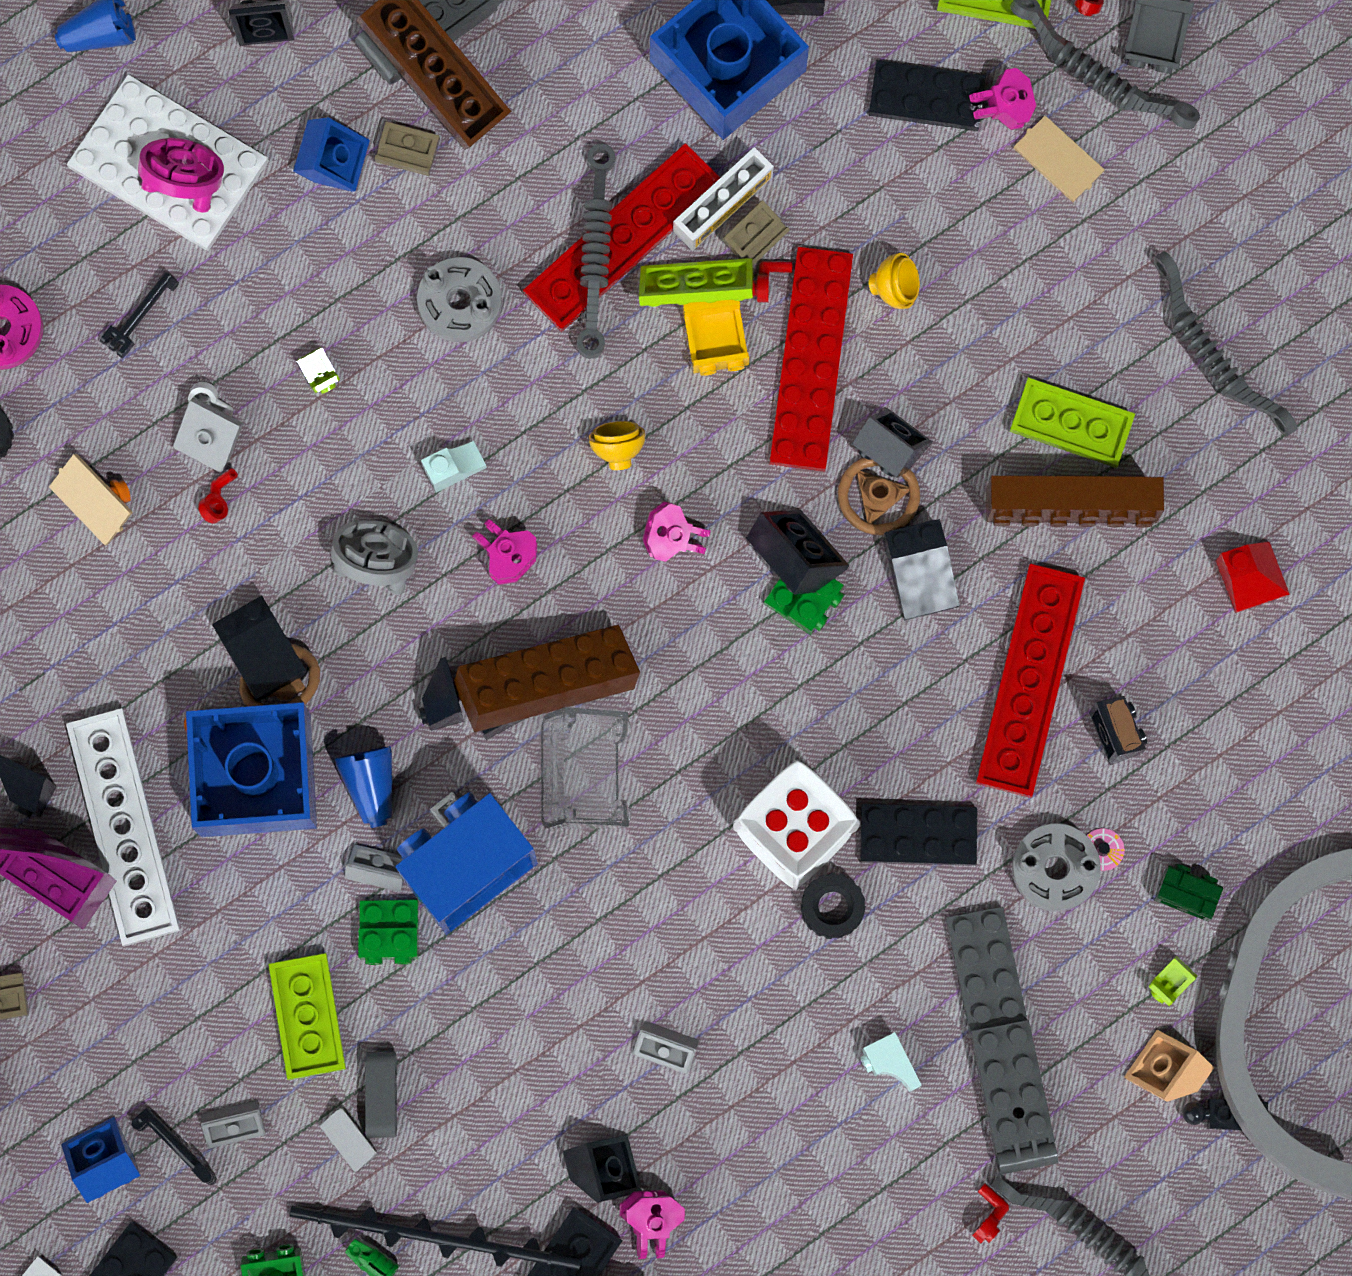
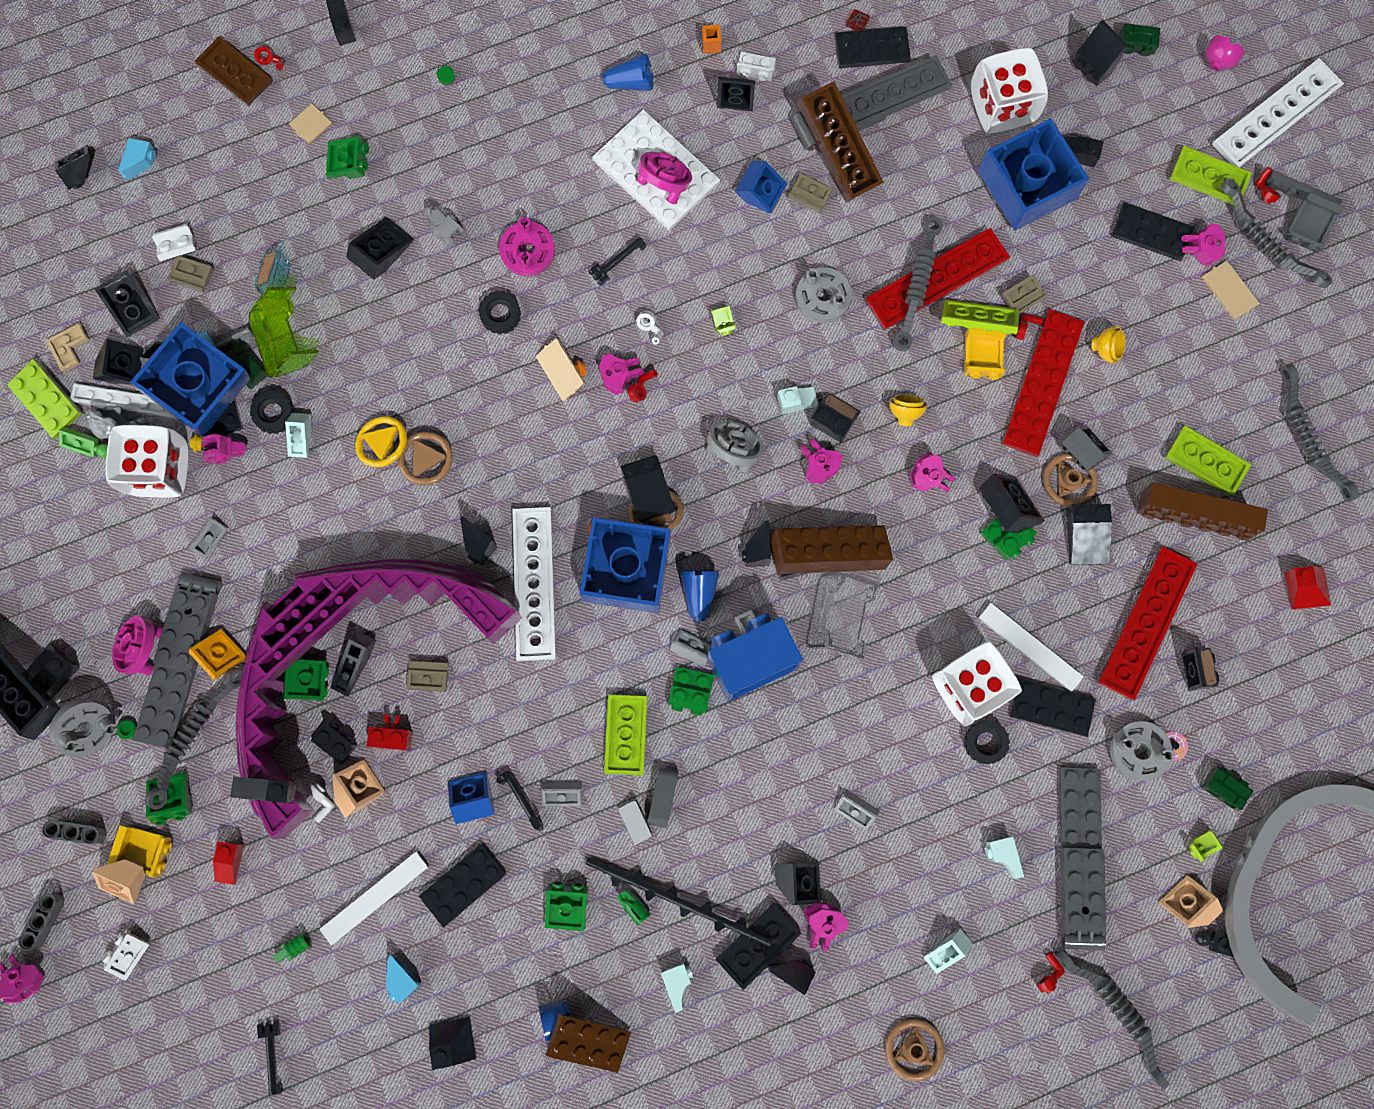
camera: 15 degrees right, 0 degrees up
(181, 488) = (619, 373): none -> dark pink hinge
(207, 435) = (644, 344): plate -> none
(514, 479) = (834, 417): none -> black slope
(723, 199) = (1008, 267): white brick -> none
(837, 1216) = (949, 951): none -> light aqua arch
(869, 754) = (1030, 647): none -> white tile

